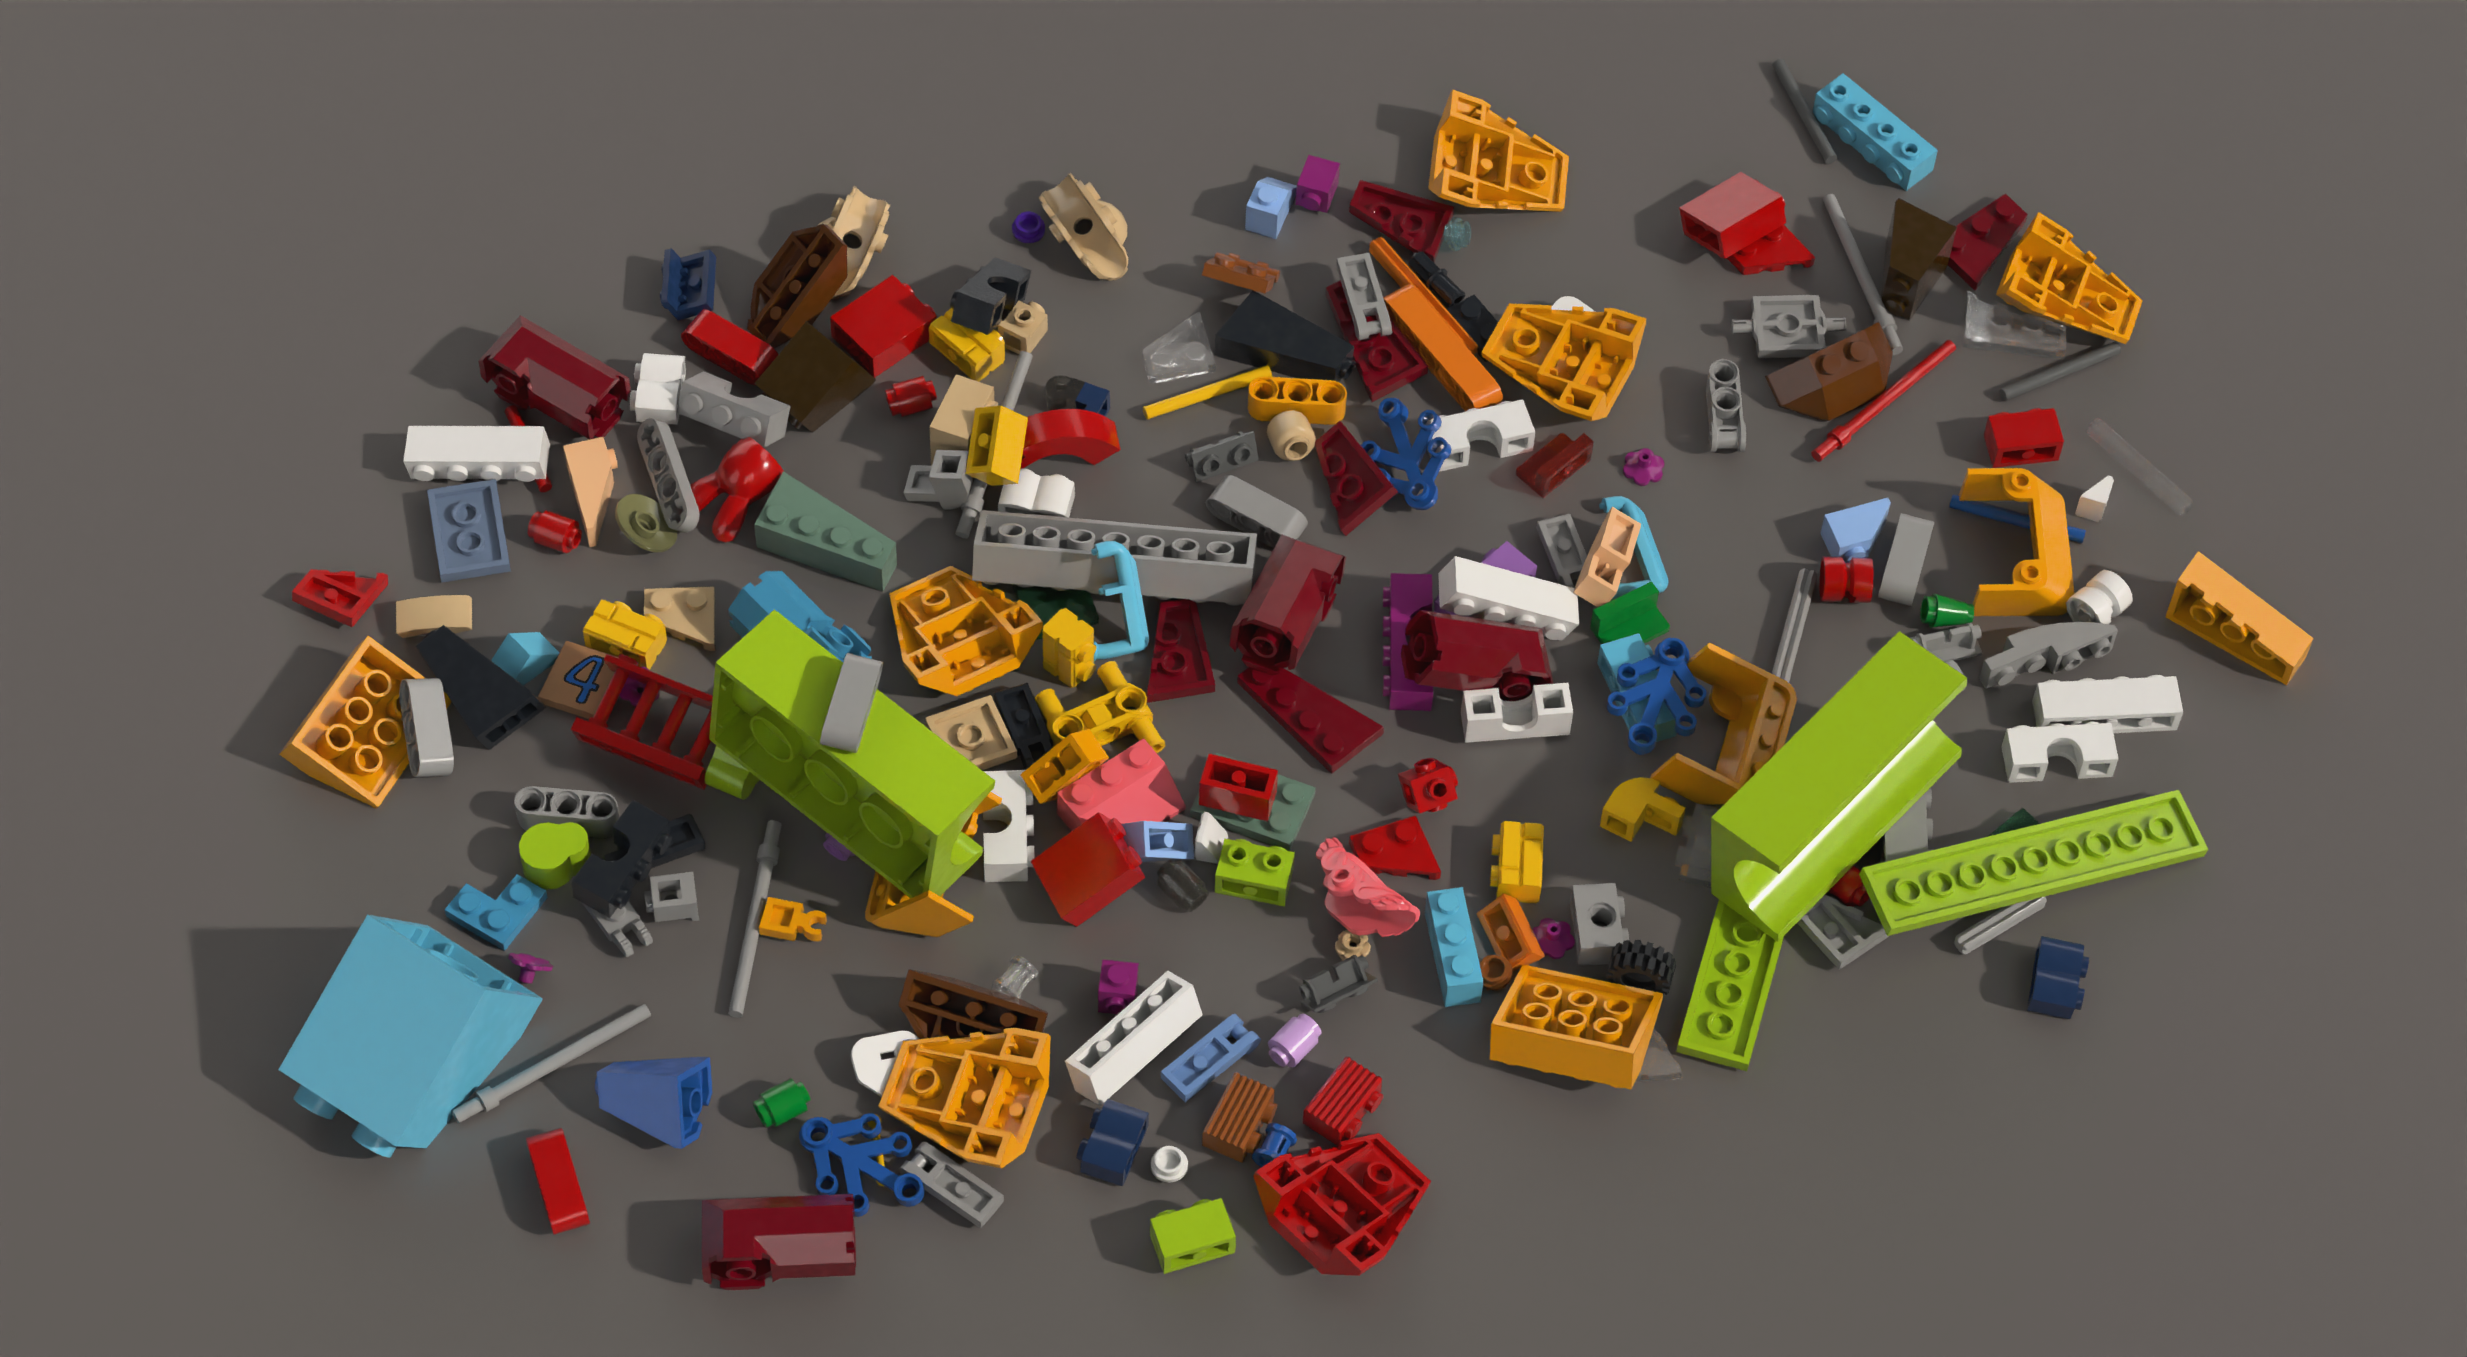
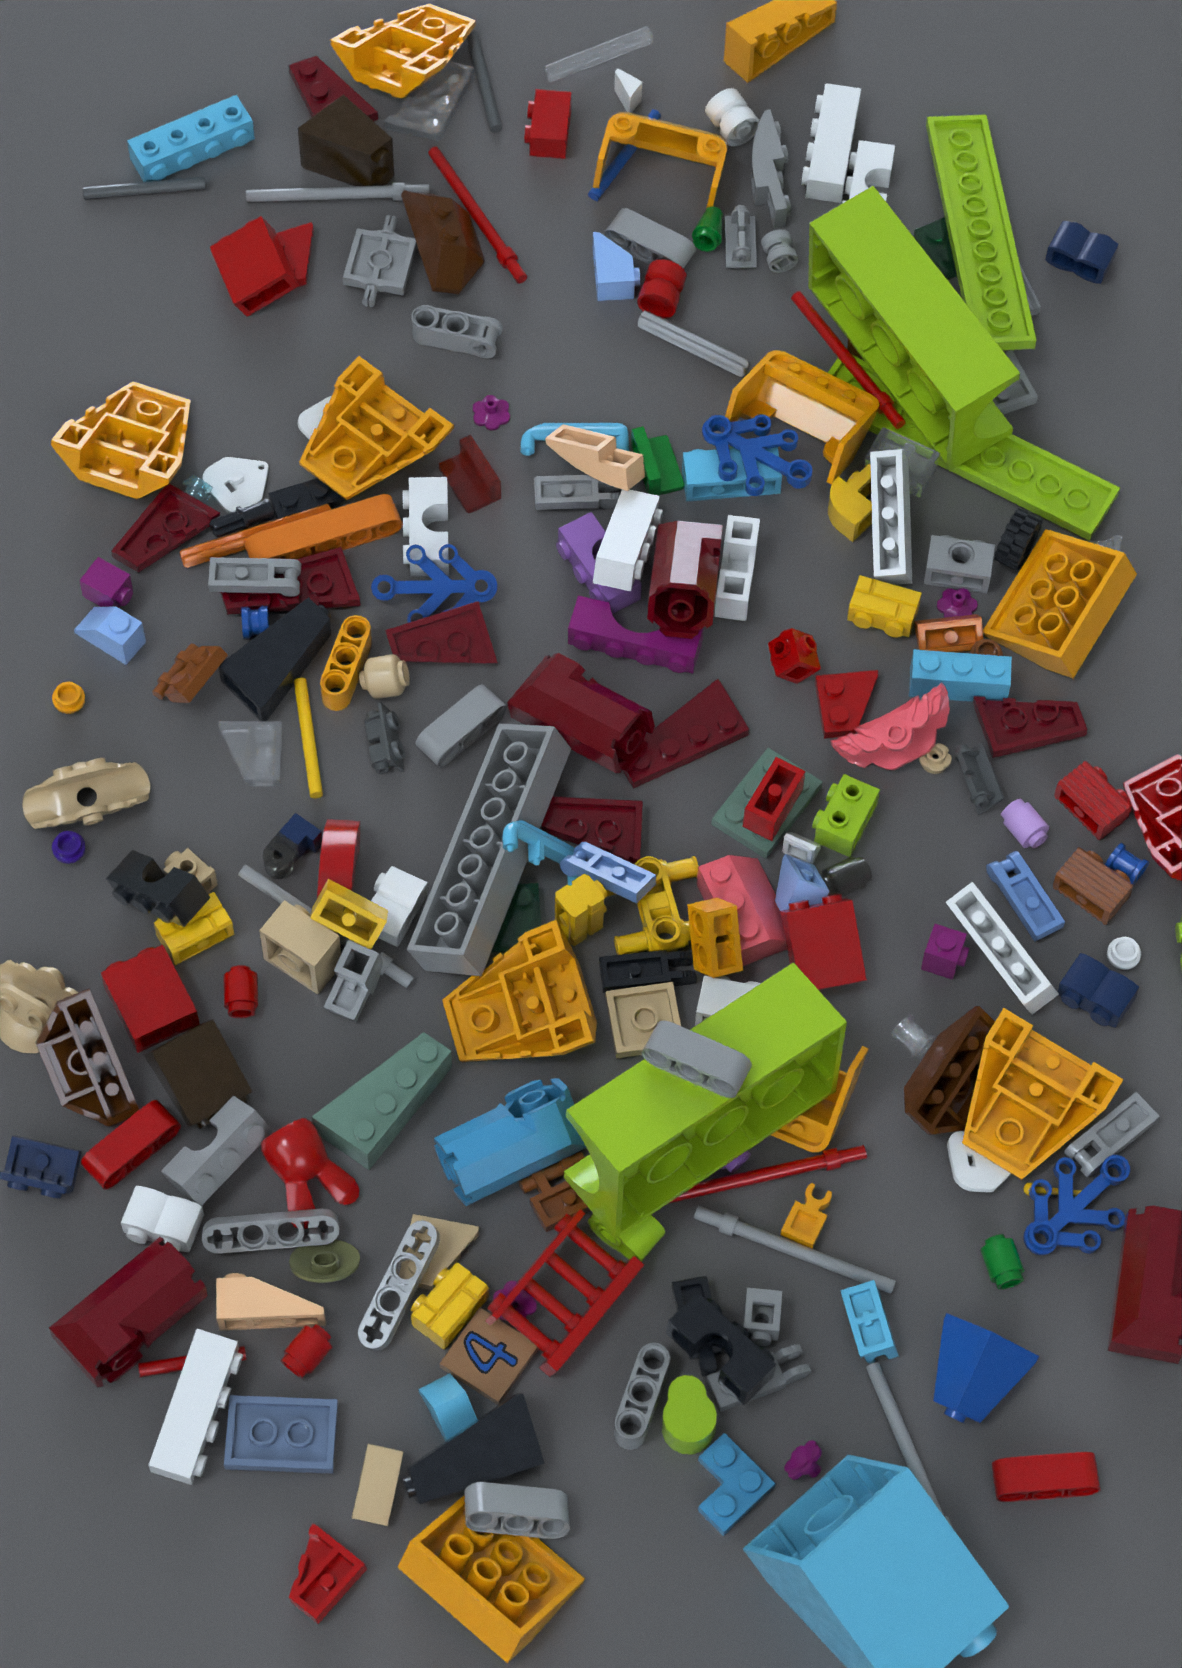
camera: 75 degrees left, 5 degrees up
(603, 577) = (393, 1283): none -> light grey beam
(687, 994) = (869, 1321): none -> medium azure hinge
(858, 929) = (829, 1159): none -> red bar
(1114, 662) = (611, 871): none -> medium blue plate
(1190, 188) = (68, 697): none -> light orange plate
(1318, 311) = (254, 621): none -> blue wheel
(1419, 1025) = (1027, 725): none -> dark red wing
(1489, 276) = (243, 476): none -> white piece
(1619, 837) = (891, 517): none -> white brick

